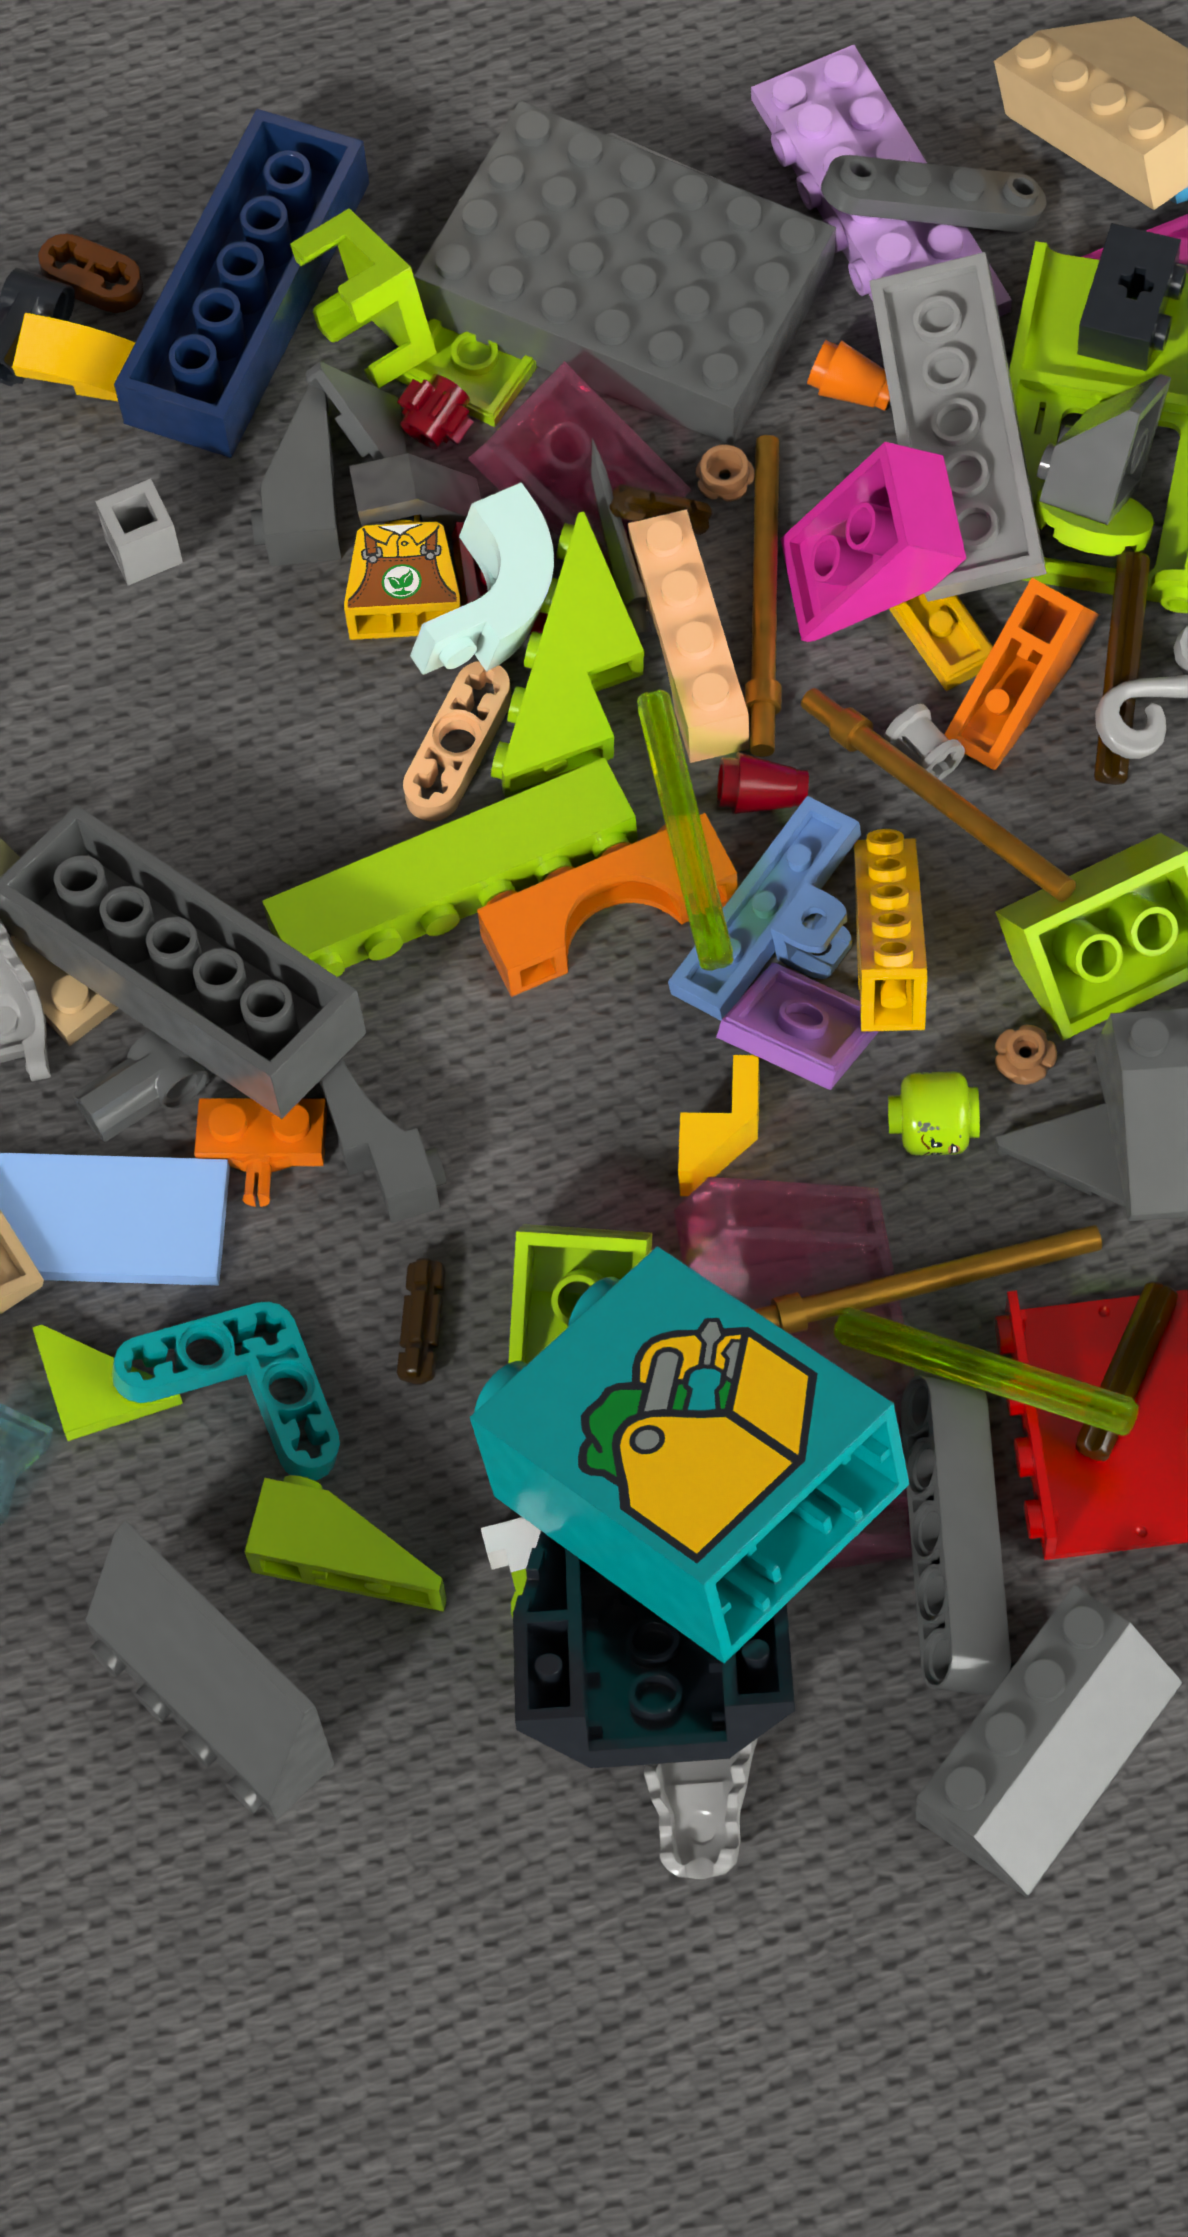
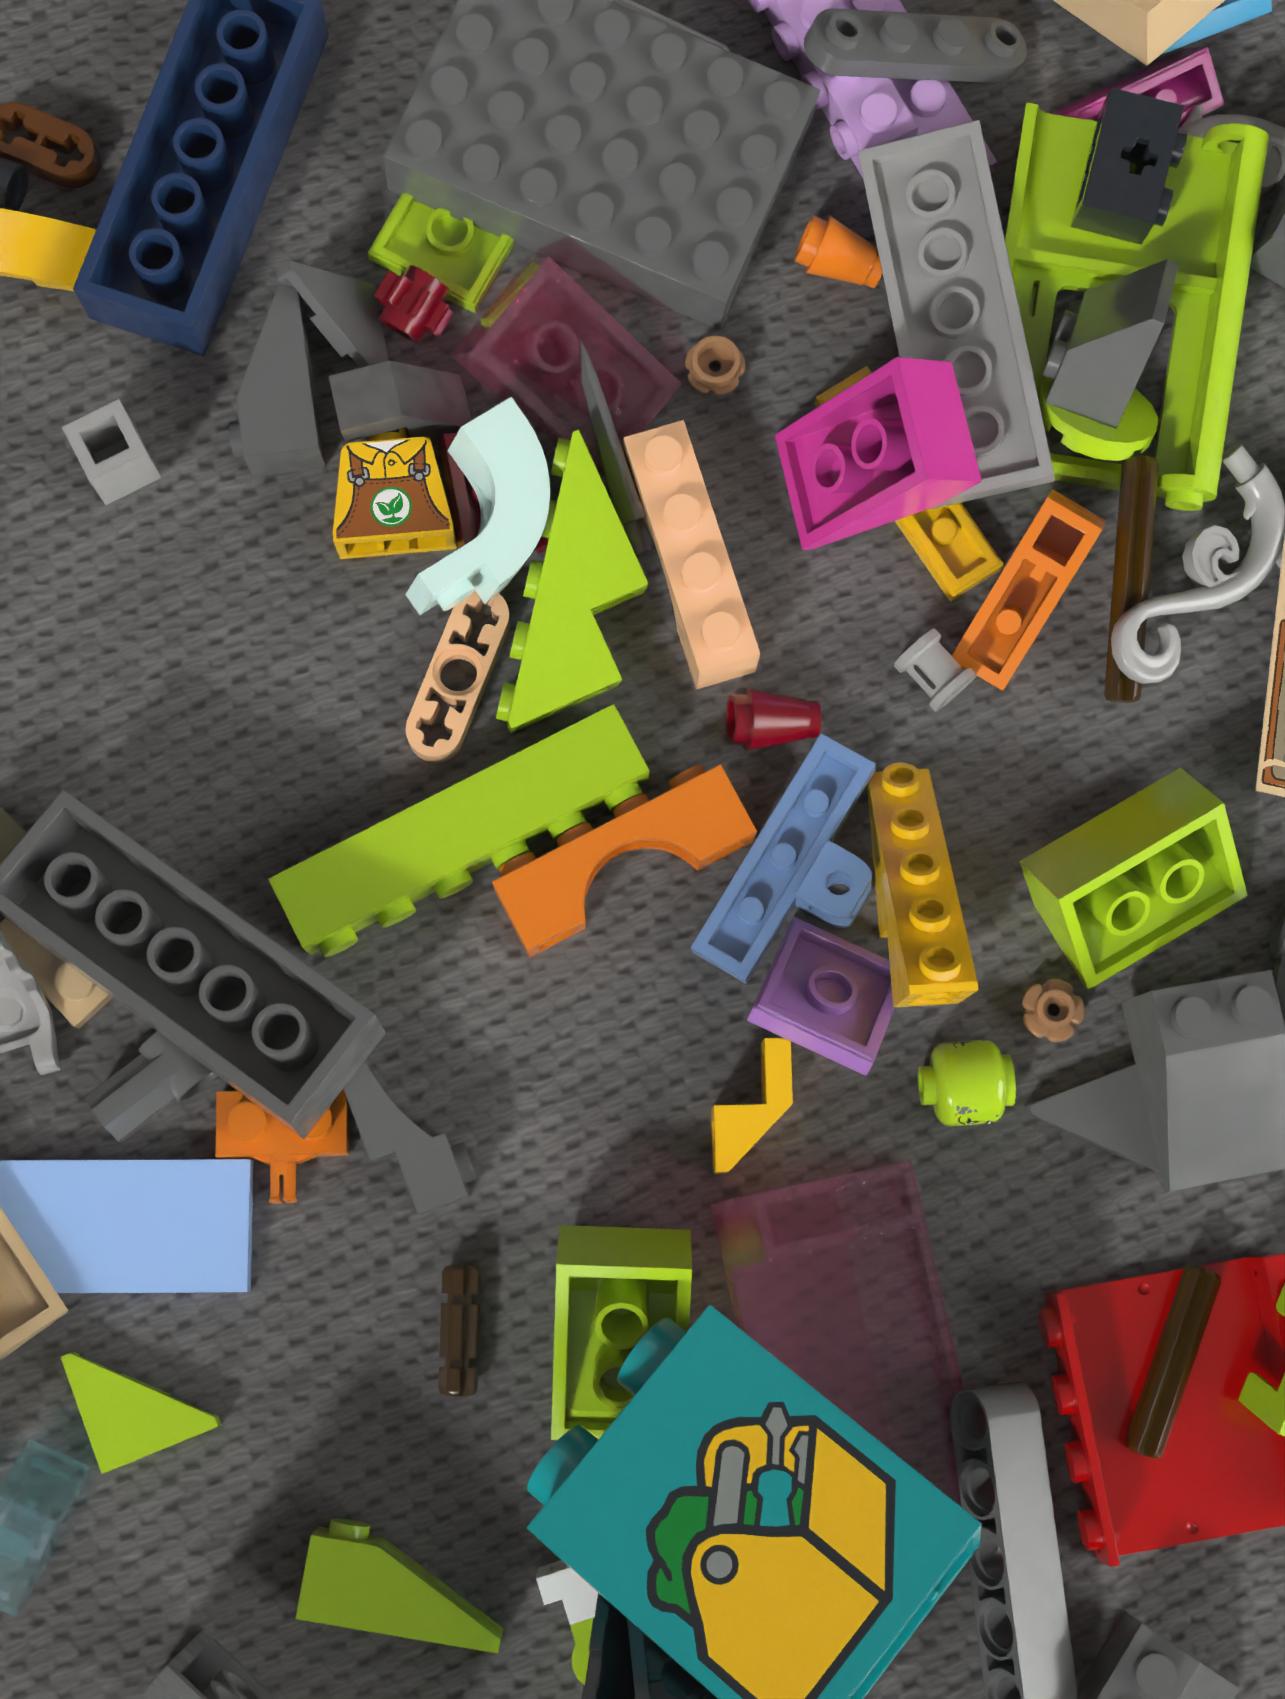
camera: 15 degrees left, 15 degrees up
(257, 1360) = (300, 1390): teal beam -> none
(377, 290) = (339, 176): lime panel -> none
(642, 504) = (647, 413): dark brown axle -> none
(685, 831) = (703, 790): clear neon green axle -> none
(763, 692) = (767, 614): pearl gold bar -> none
(794, 1313) = (837, 1315): pearl gold bar -> none
(856, 733) = (864, 656): pearl gold bar -> none
(987, 1371) = (1043, 1388): clear neon green axle -> none

